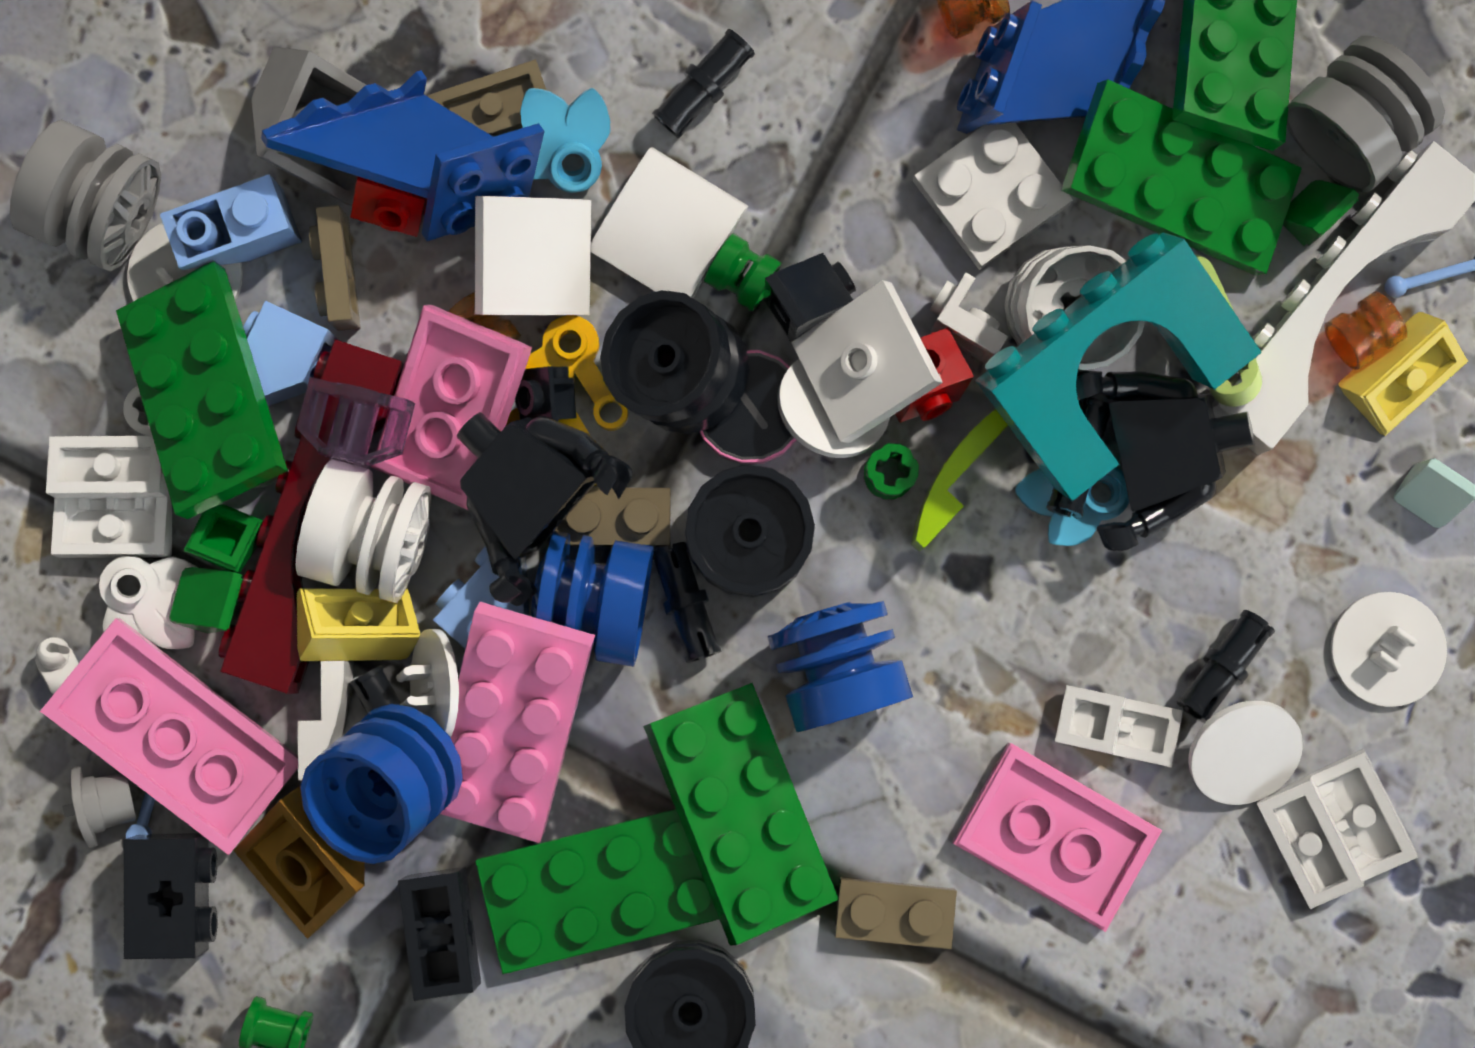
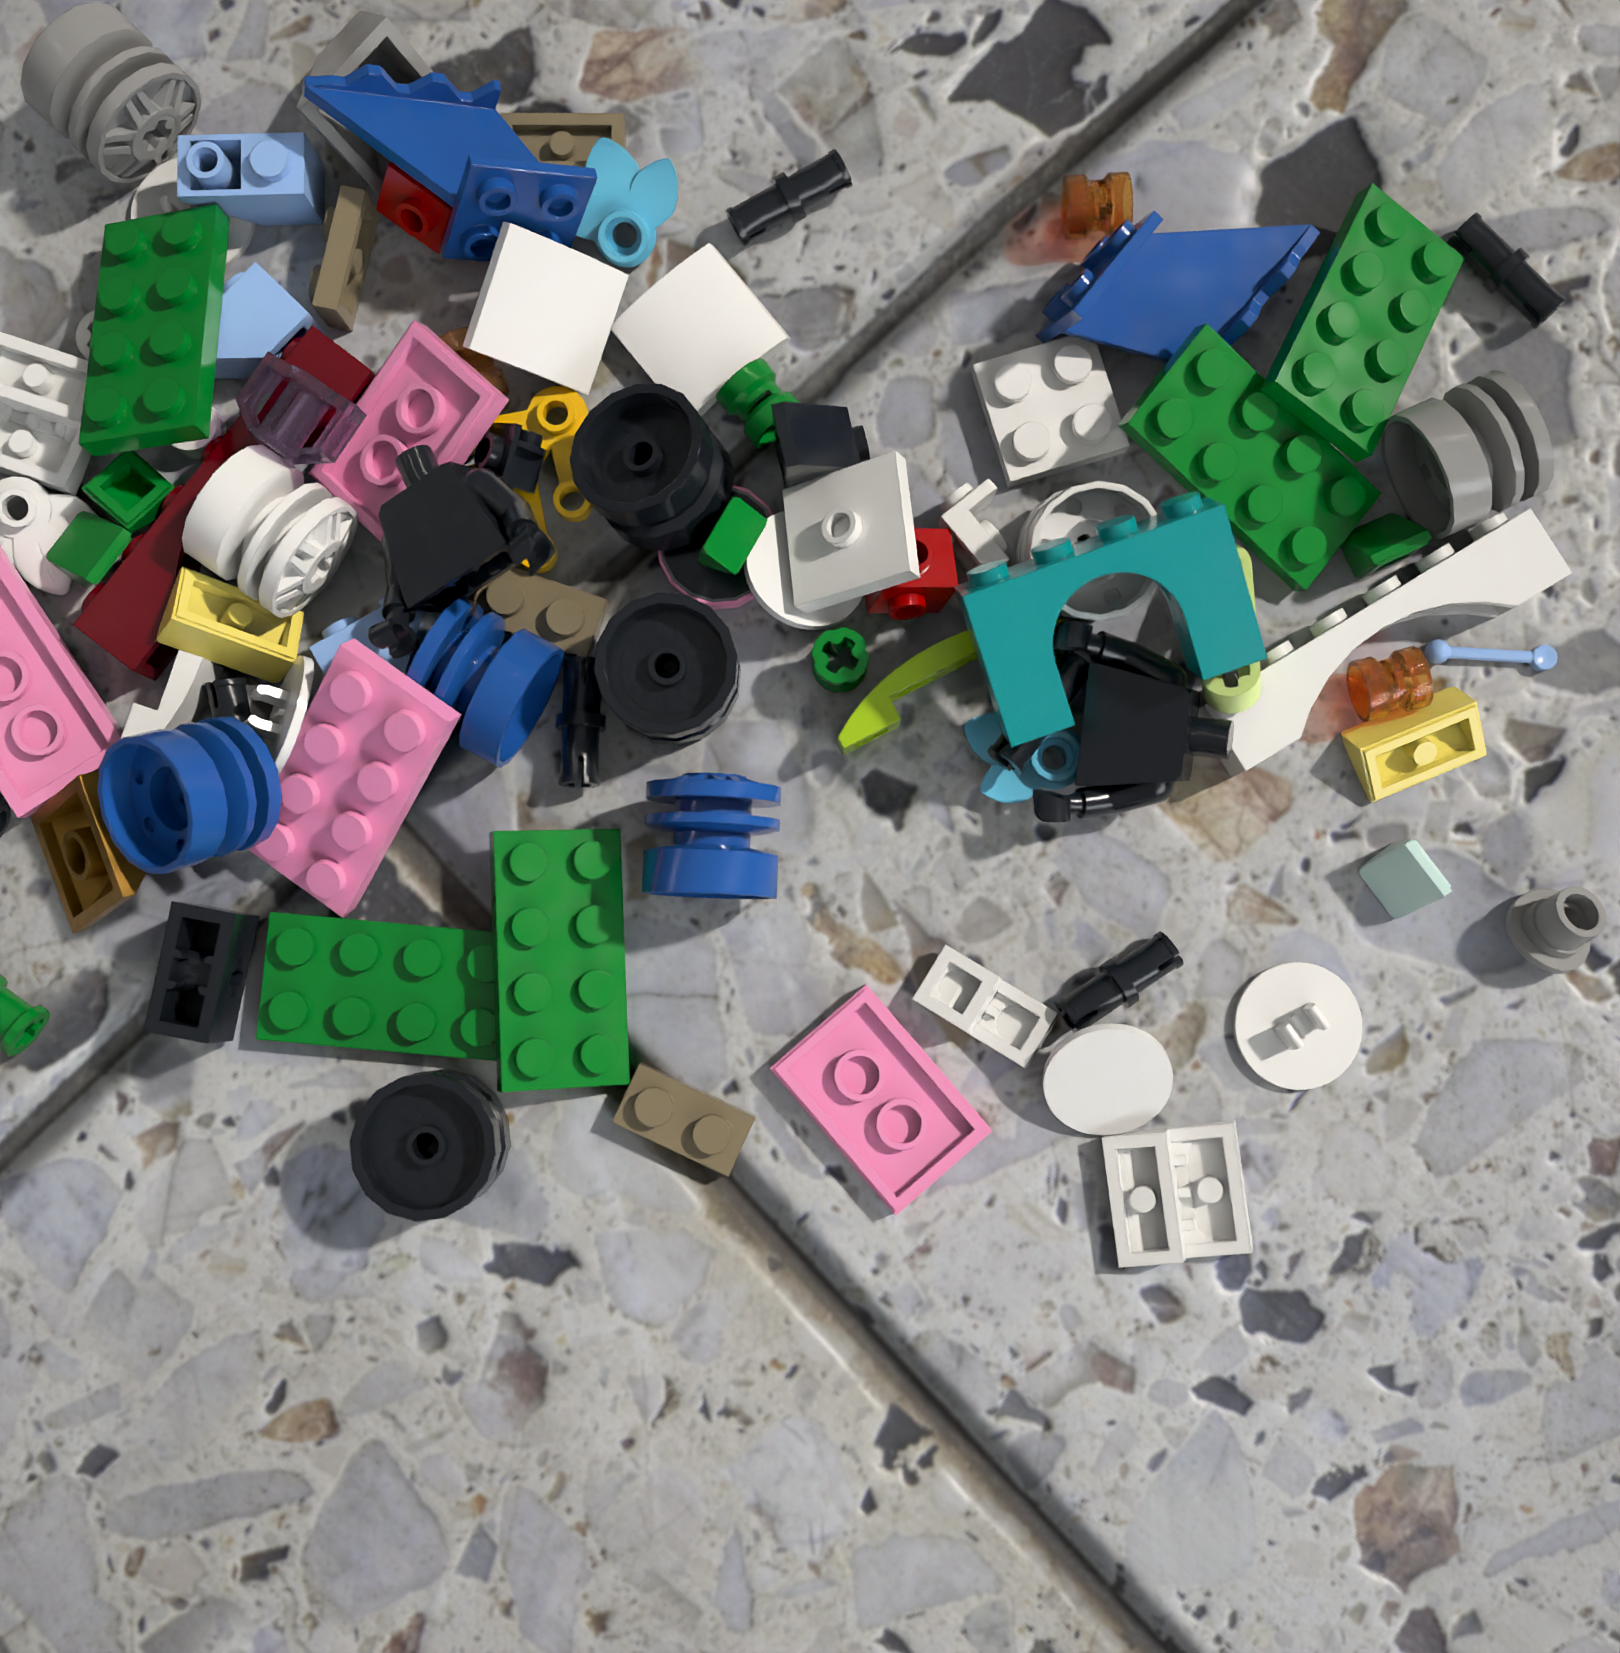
camera: 25 degrees right, 0 degrees up
(764, 400) = (732, 537): none -> green slope

